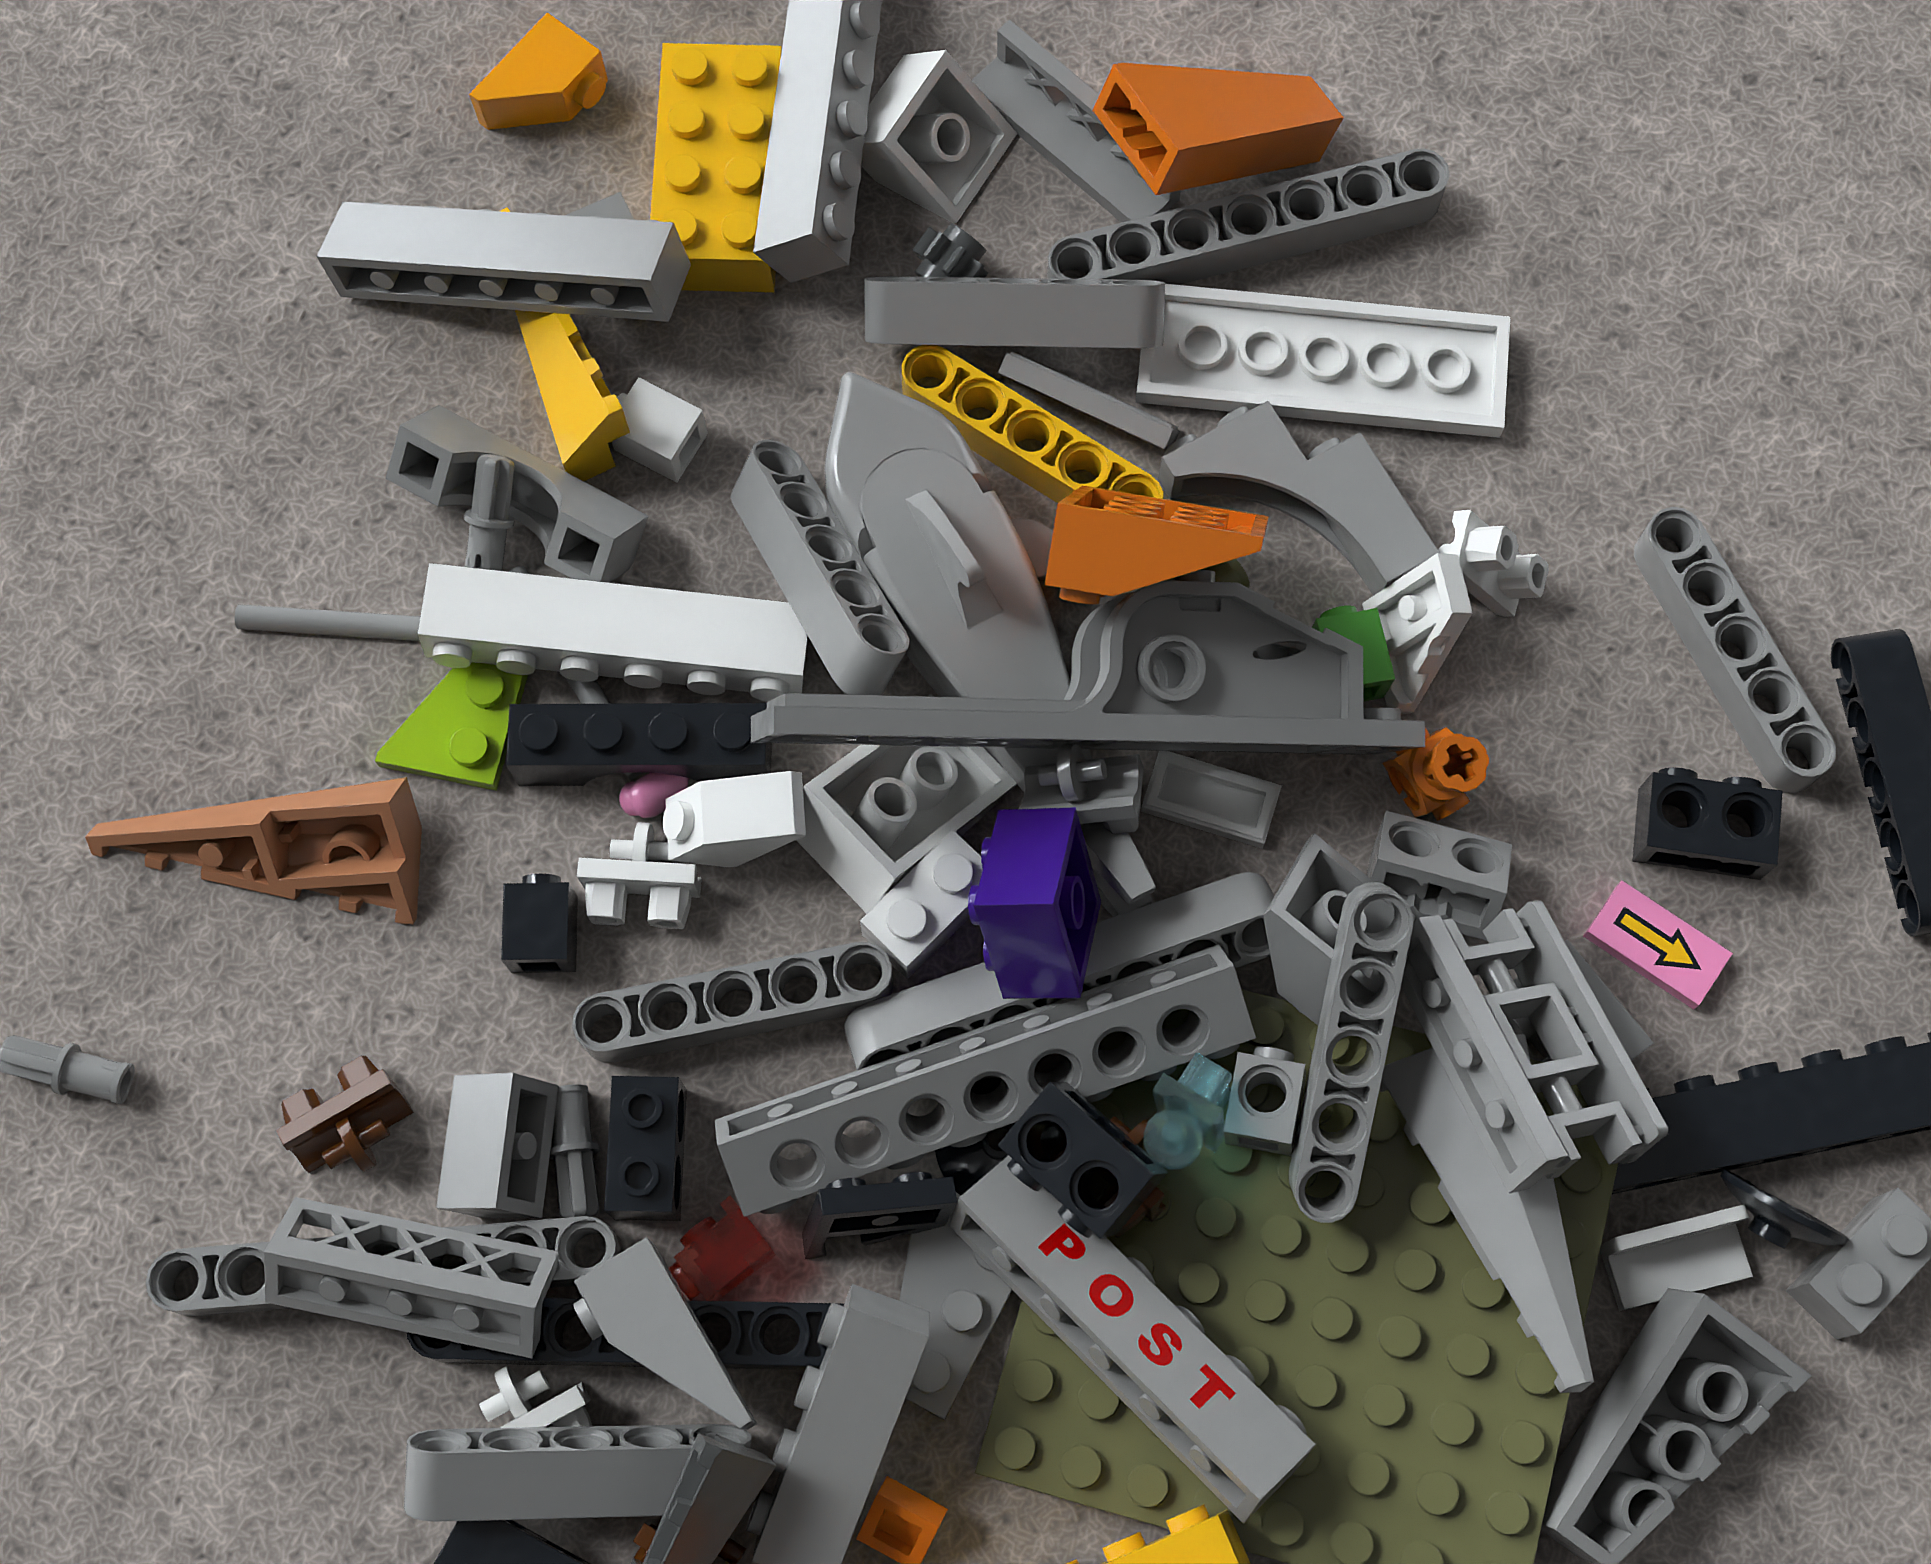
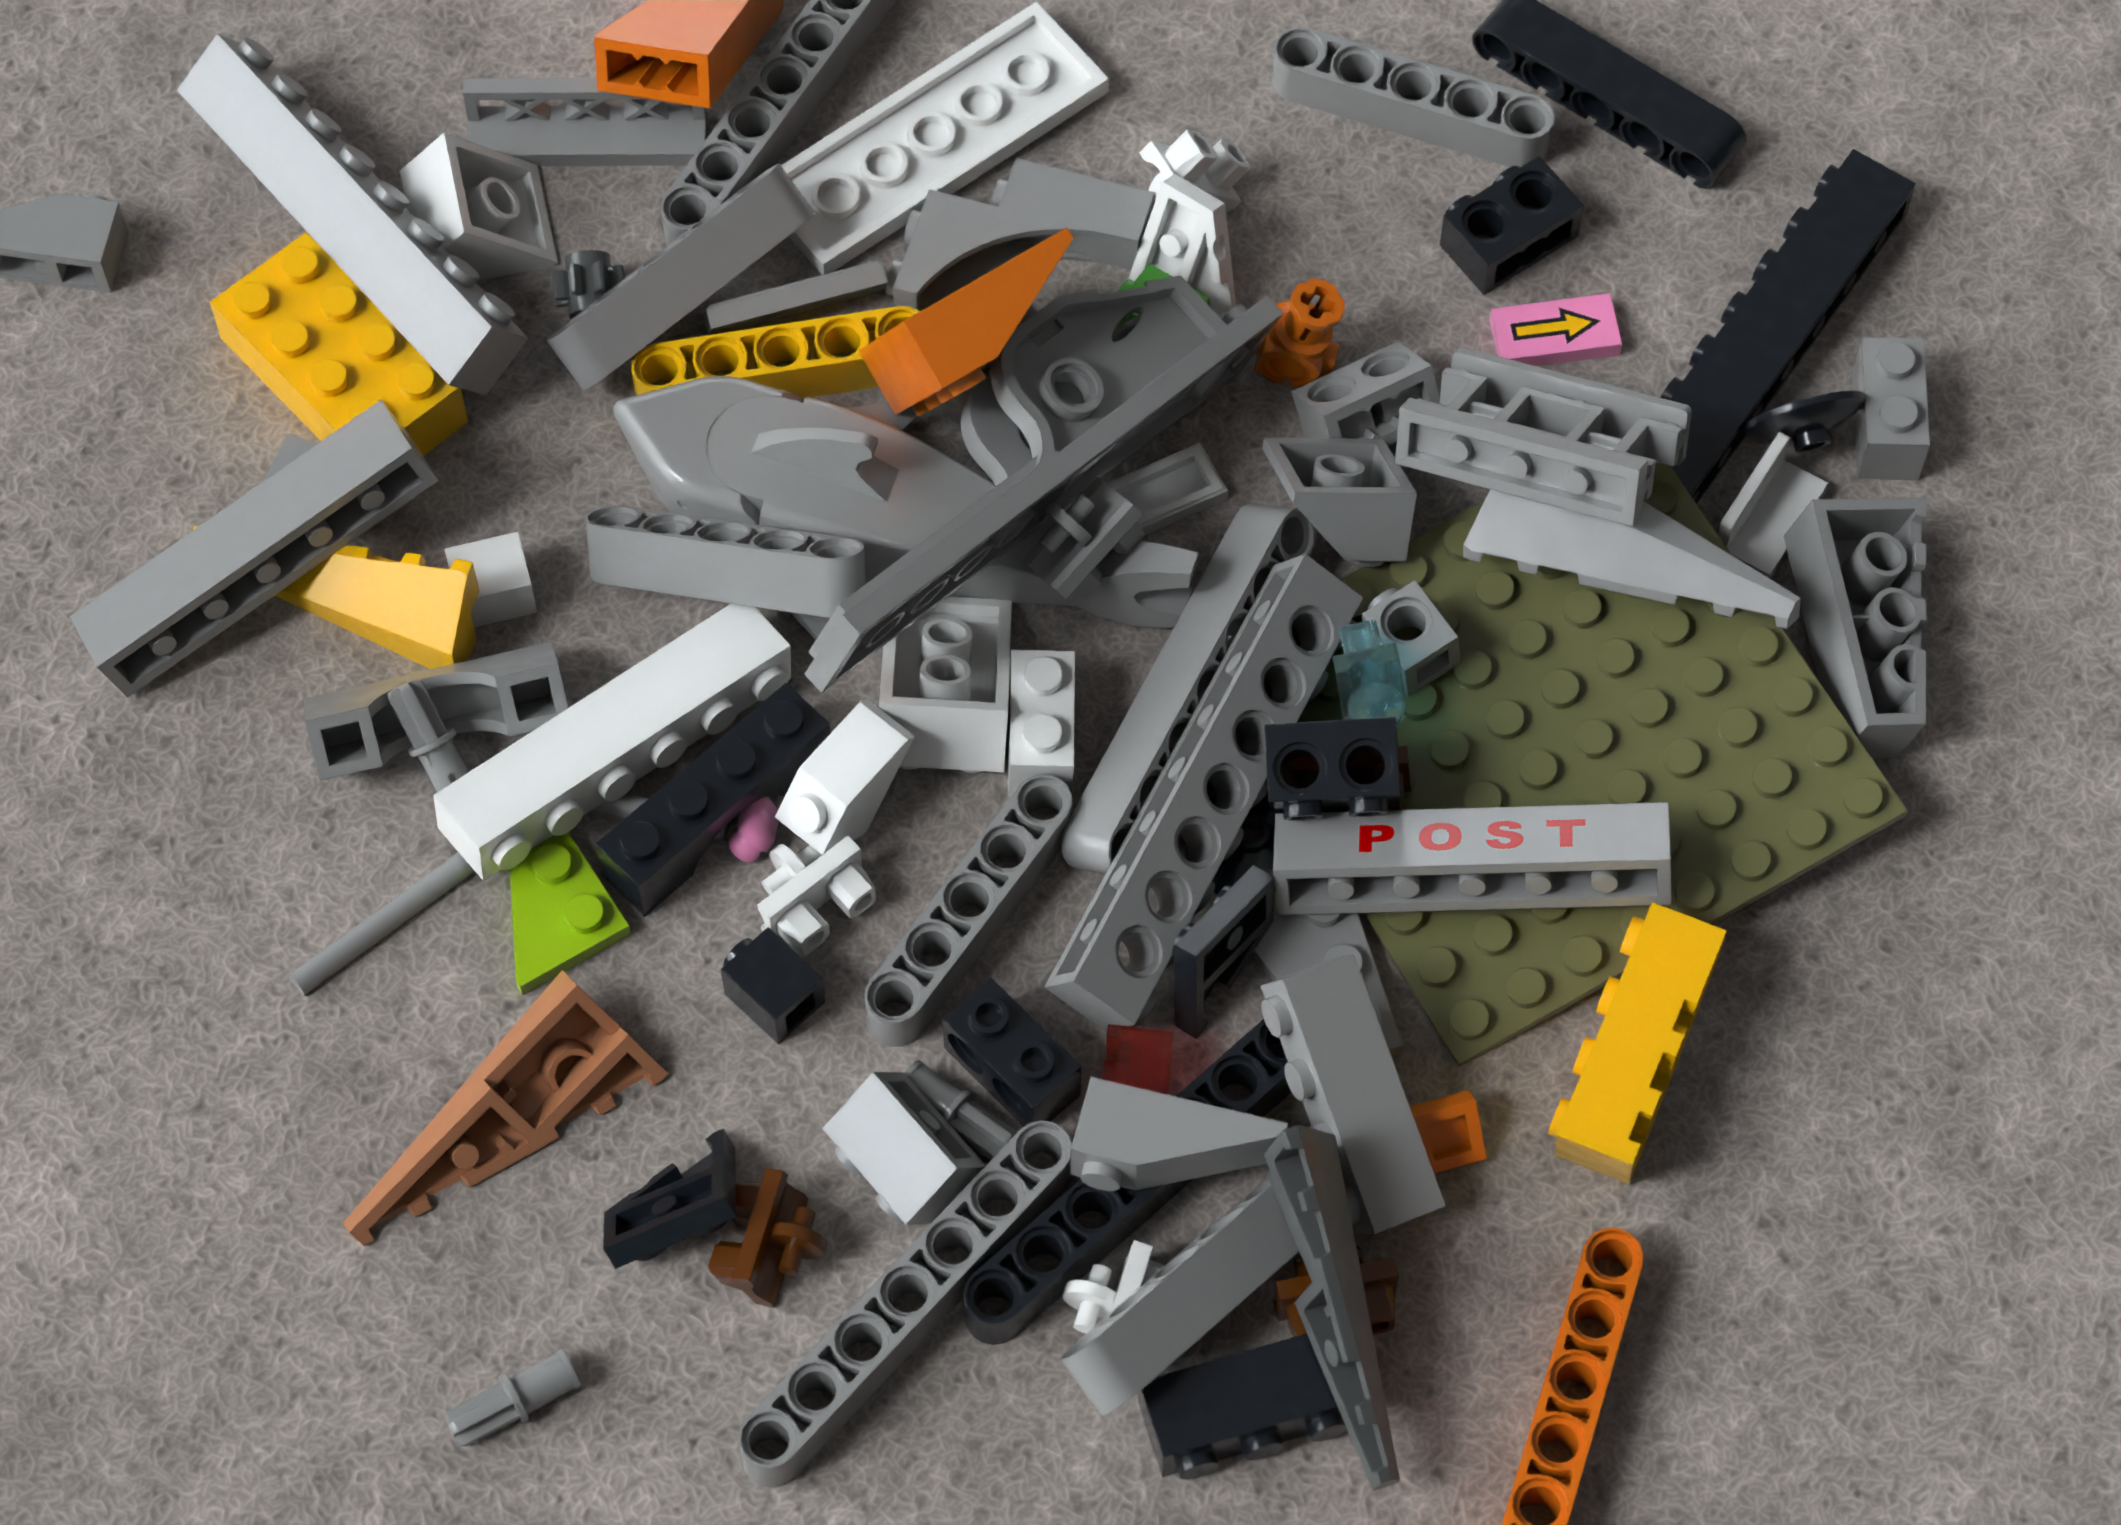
camera: 45 degrees left, 10 degrees down
(306, 1034) = (674, 1206): none -> black wing
(403, 1286) = (948, 1274): light grey fence -> none
(541, 79) = (128, 409): light orange slope -> none
(1036, 903) = (1126, 636): dark purple brick -> none
(1355, 1084) = (1438, 506): light grey beam -> none

